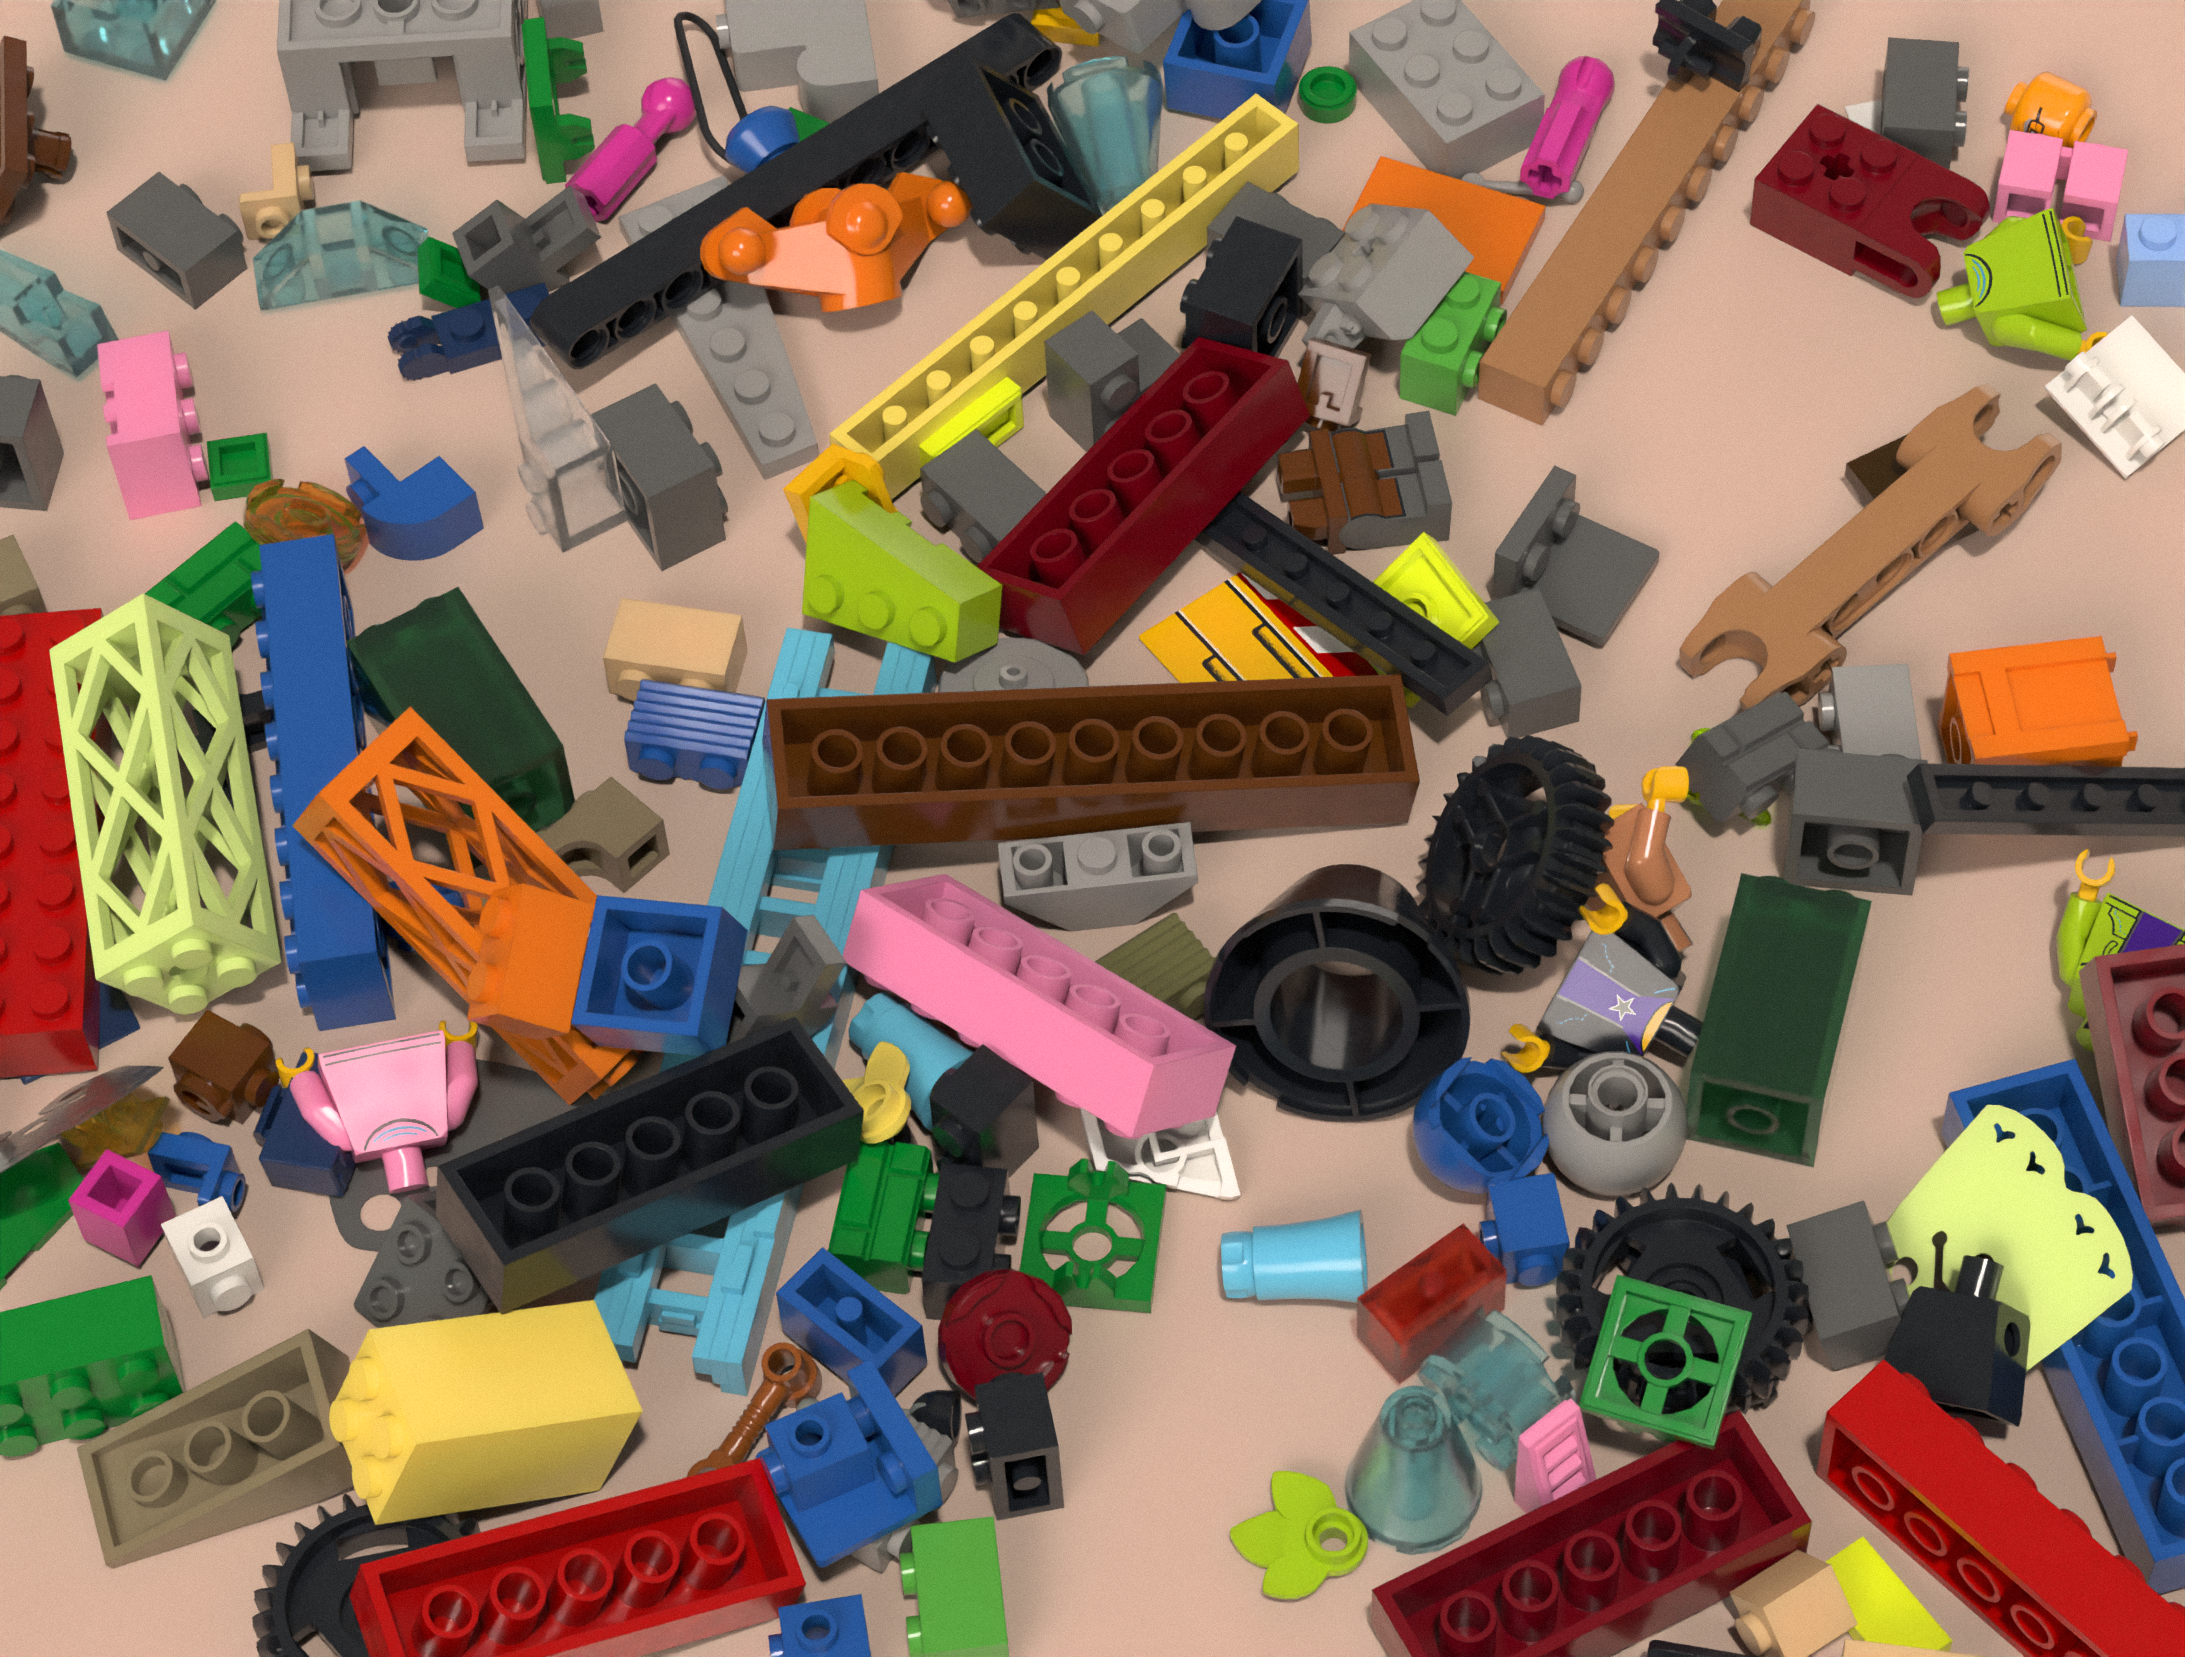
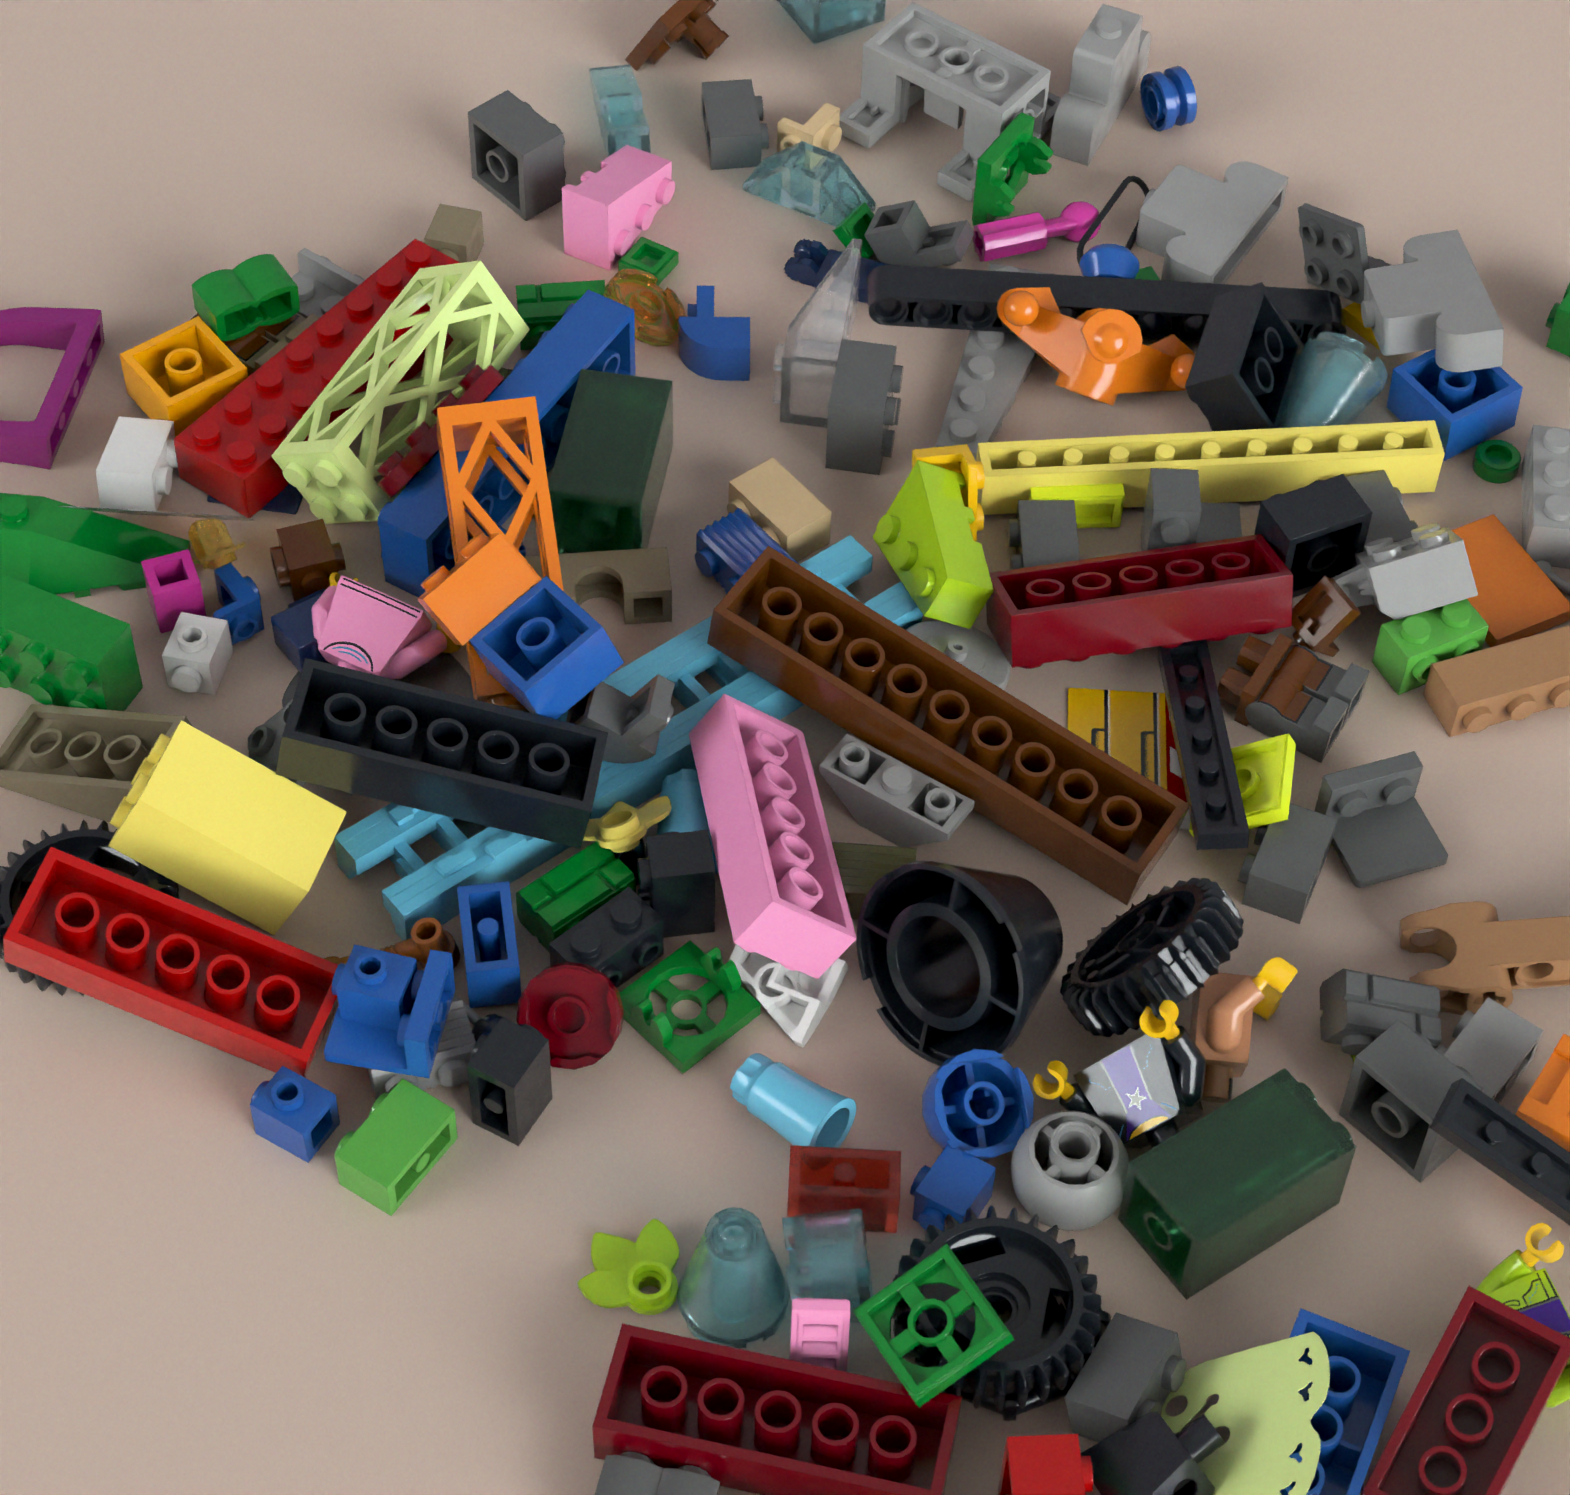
camera: 35 degrees right, 5 degrees down
(264, 817) = (423, 440): none -> dark red plate

